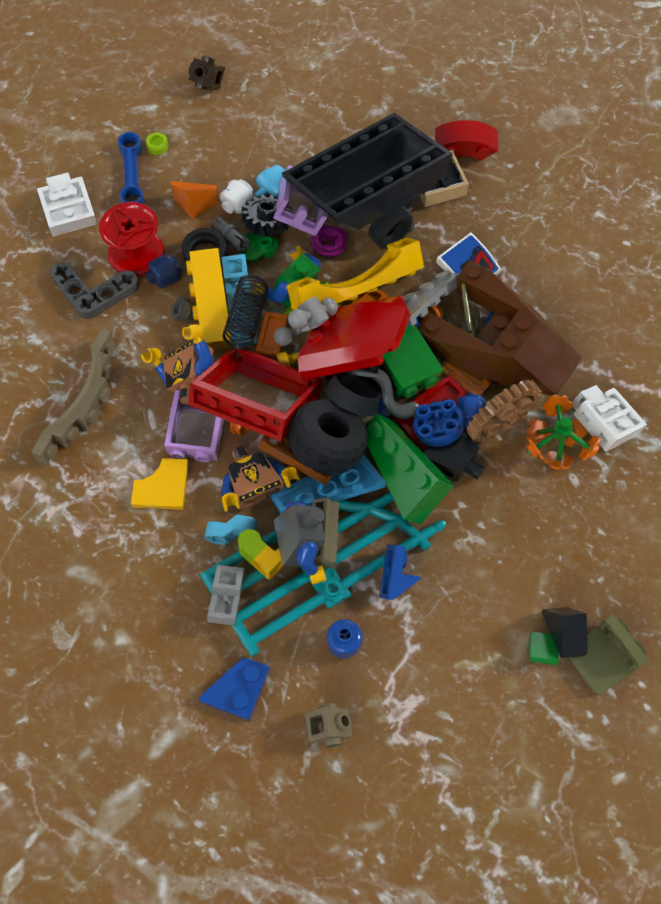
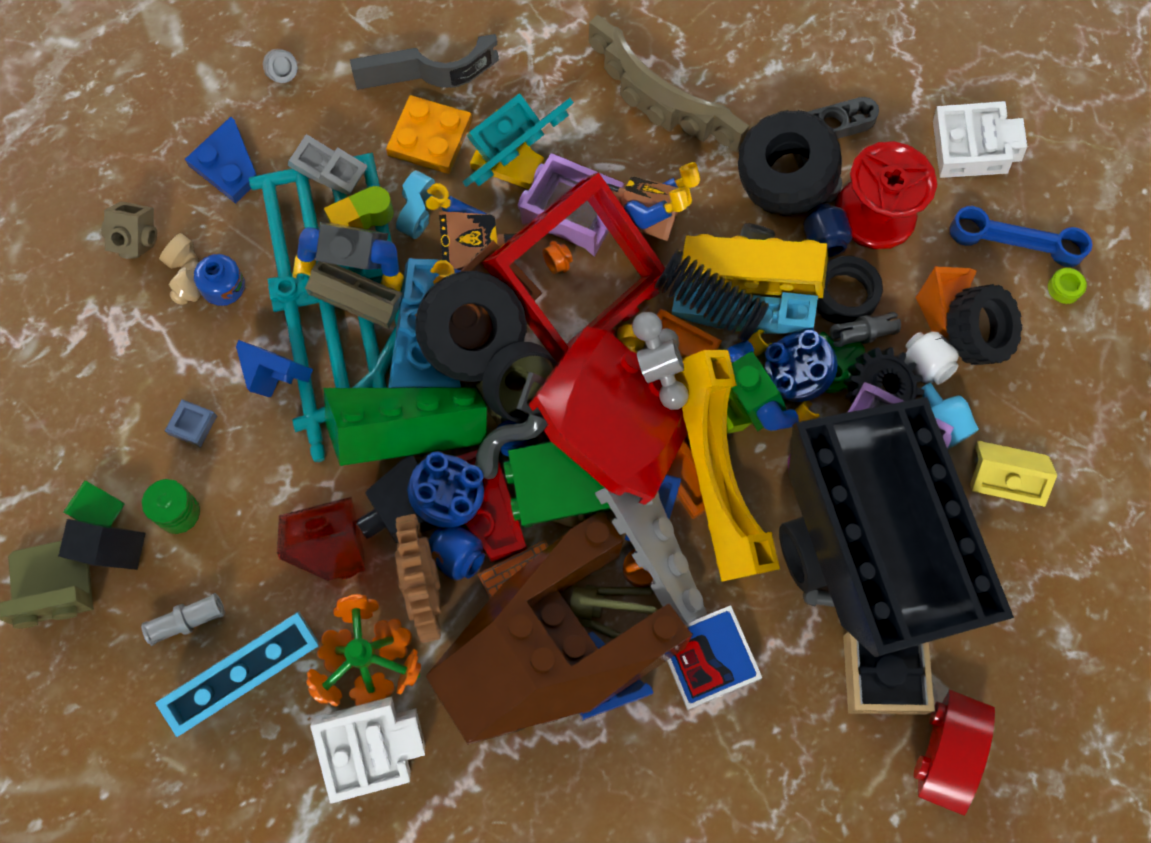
camera: 110 degrees right, 5 degrees up
(88, 530) = (412, 65): none -> dark grey piece
(124, 275) = (782, 135): none -> black tyre
(139, 681) = (280, 65): none -> light grey tile
(157, 478) = (506, 130): none -> teal bracket
(164, 546) = (429, 134): none -> light orange plate
(207, 170) = (1003, 320): none -> black tyre
(268, 259) = (801, 365): none -> blue tile
(292, 144) = (1013, 474): none -> light yellow panel
(332, 682) = (181, 254): none -> tan arm
(454, 618) = (191, 423): none -> sand blue tile
(496, 493) = (322, 540): none -> clear red slope
(520, 596) = (170, 506): none -> green piece
(585, 559) = (183, 619): none -> light grey pin
(602, 504) = (237, 674): none -> medium azure brick

